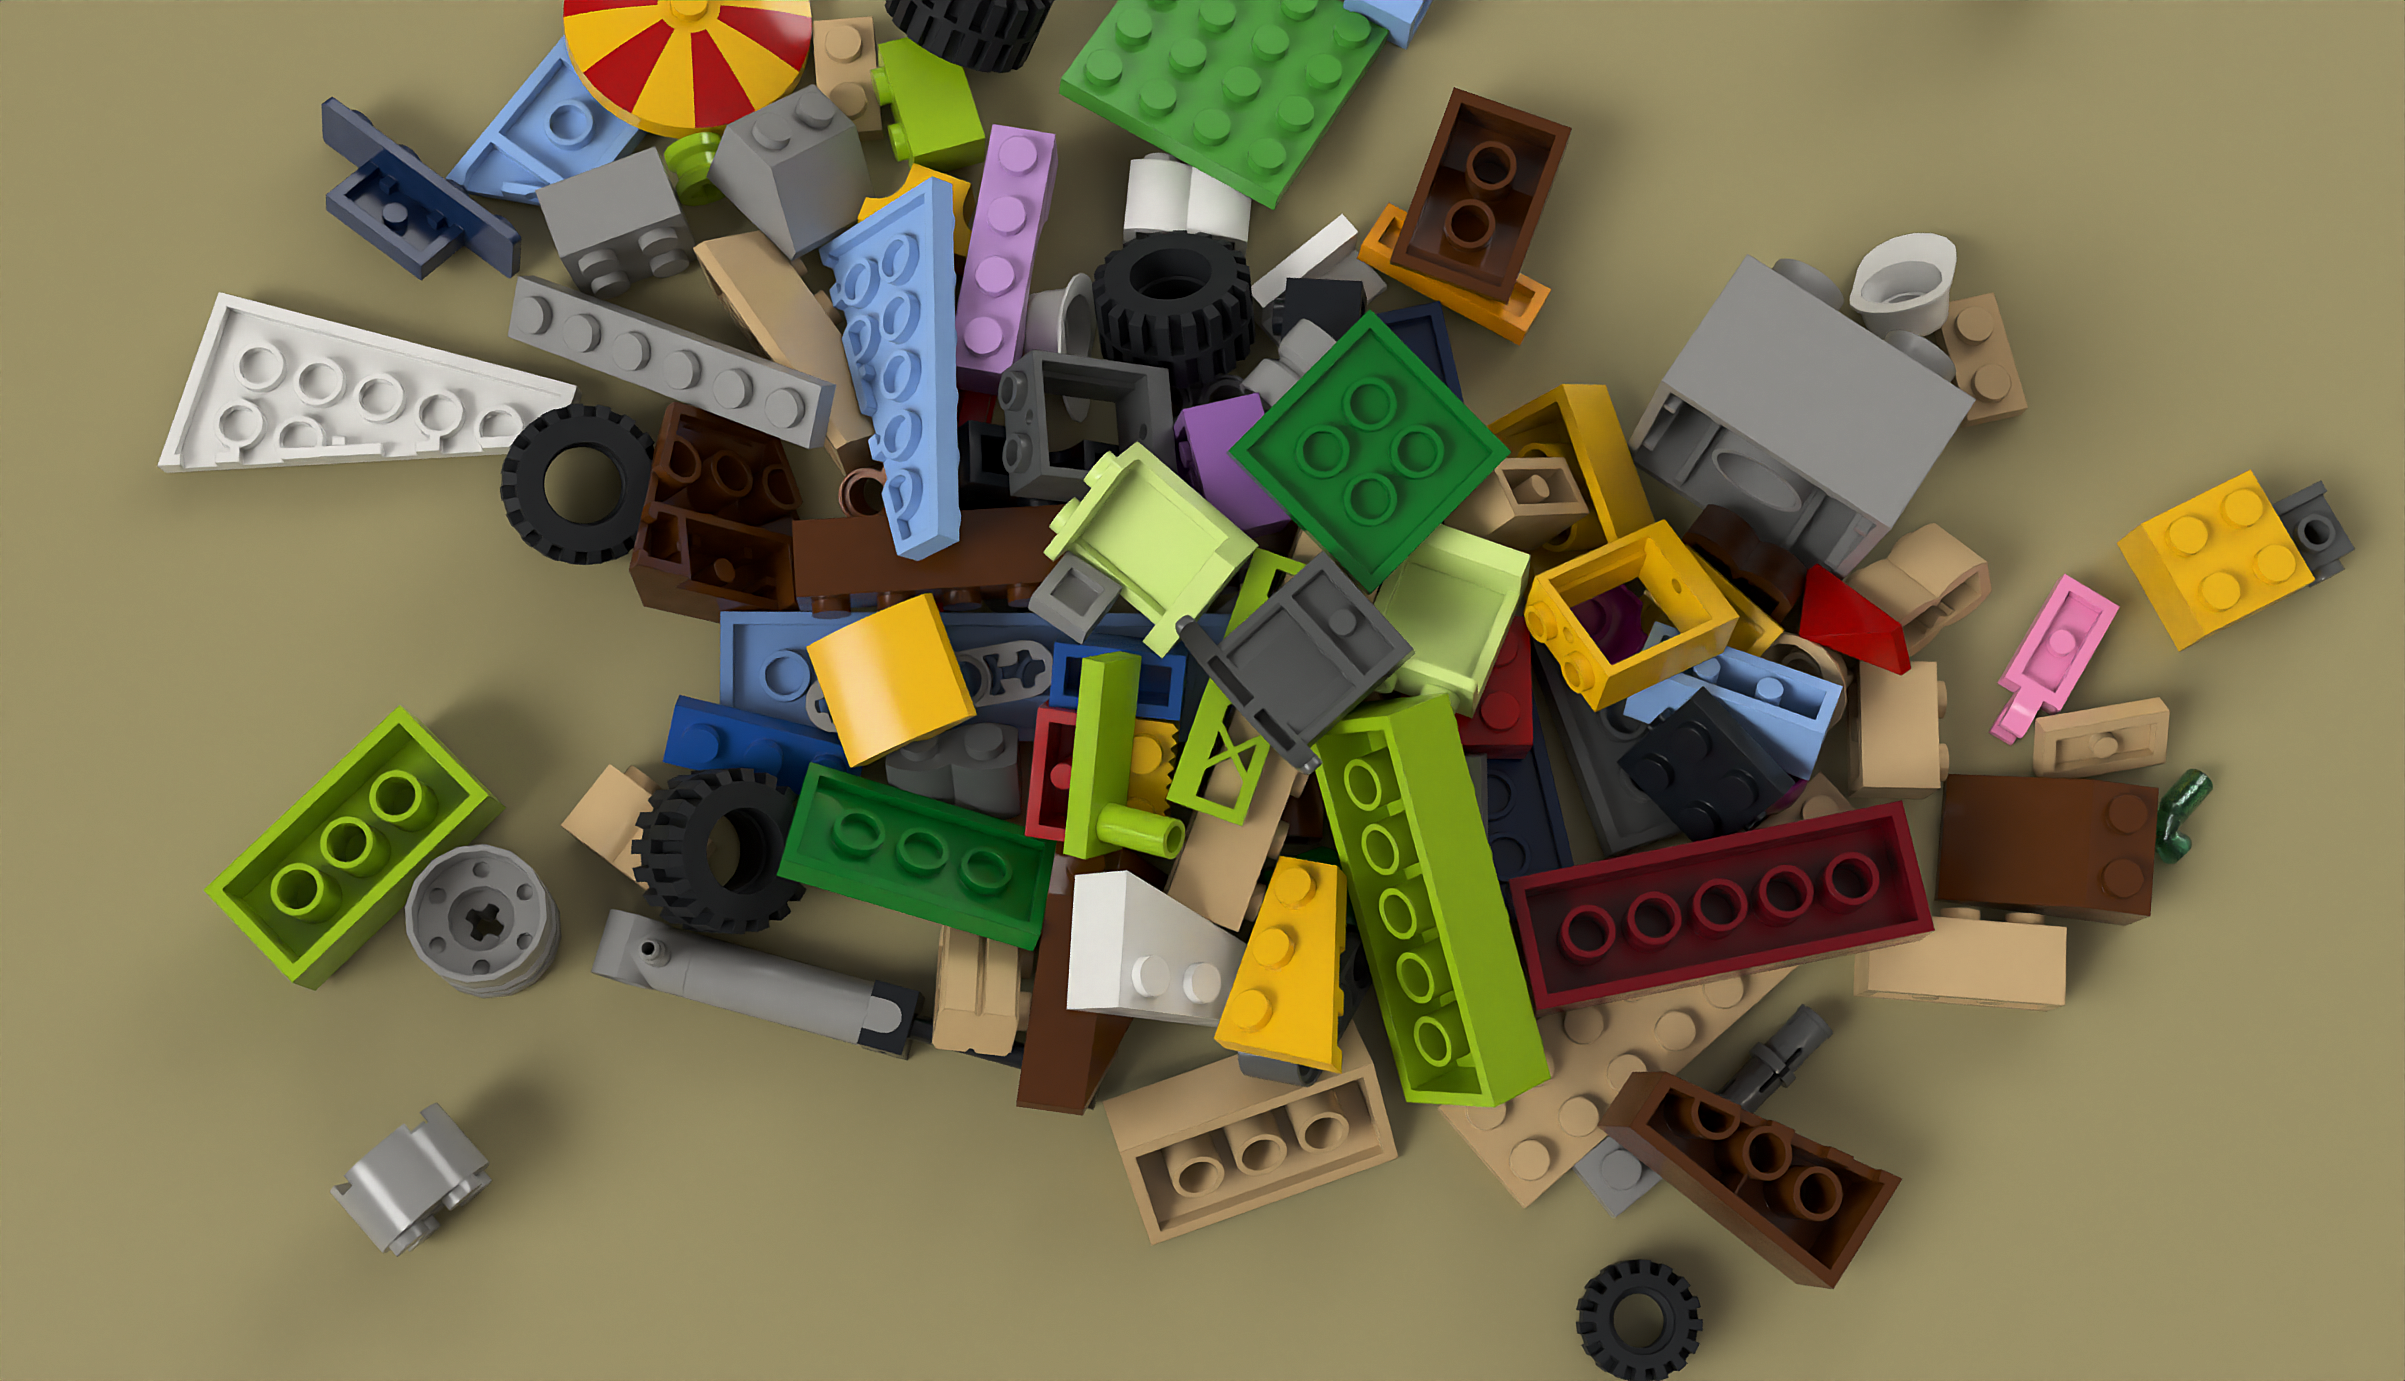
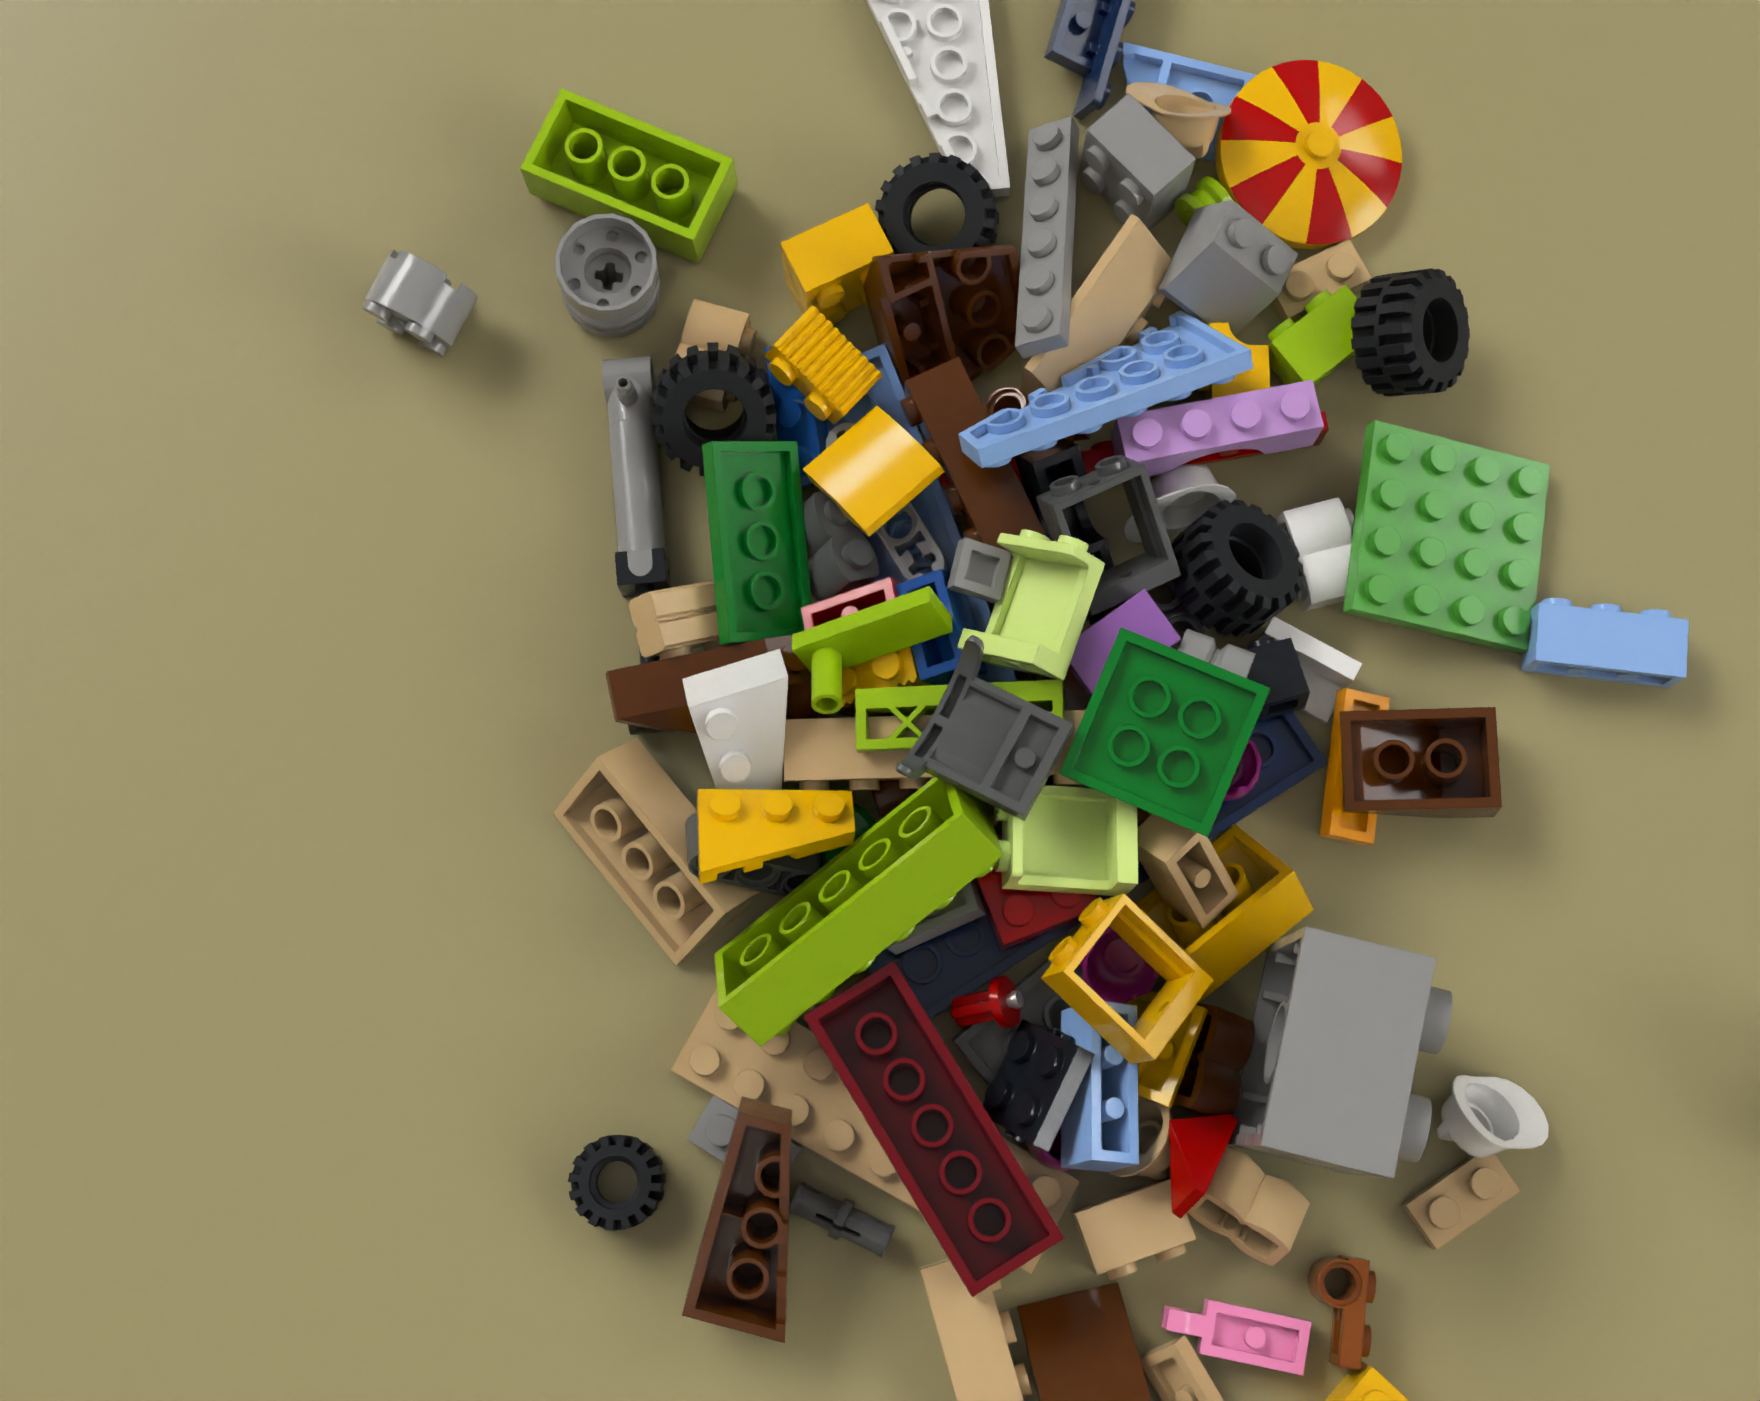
camera: 75 degrees right, 0 degrees up
(576, 143) = (1182, 114): none -> tan piece
(596, 630) = (832, 262): none -> yellow brick
(727, 694) = (822, 366): none -> yellow brick
(1589, 794) = (998, 1003): none -> red piece
(2083, 536) = (1349, 1334): none -> dark orange plate

